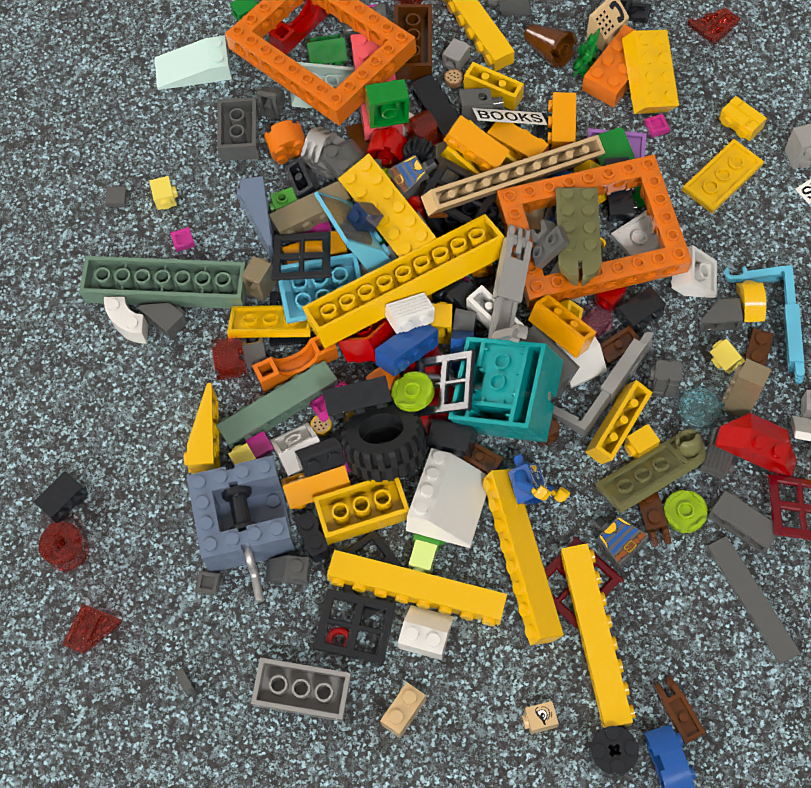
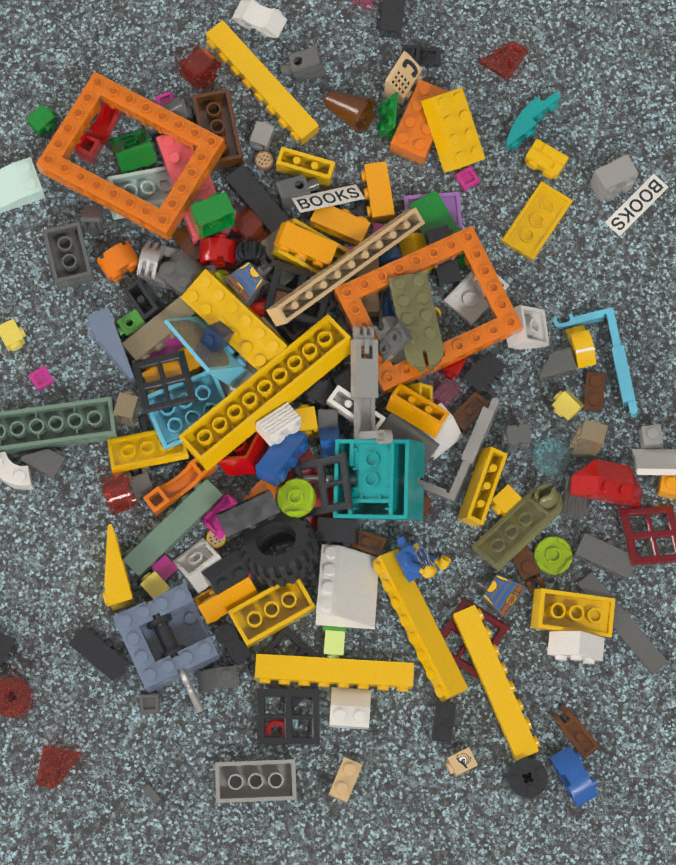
camera: 20 degrees left, 10 degrees up
(168, 519) = (100, 653): none -> black brick
(527, 668) = (443, 723): none -> black brick
(696, 611) = (576, 646): none -> white brick
(697, 575) = (572, 612): none -> yellow slope
(735, 75) = (525, 123): none -> teal slope

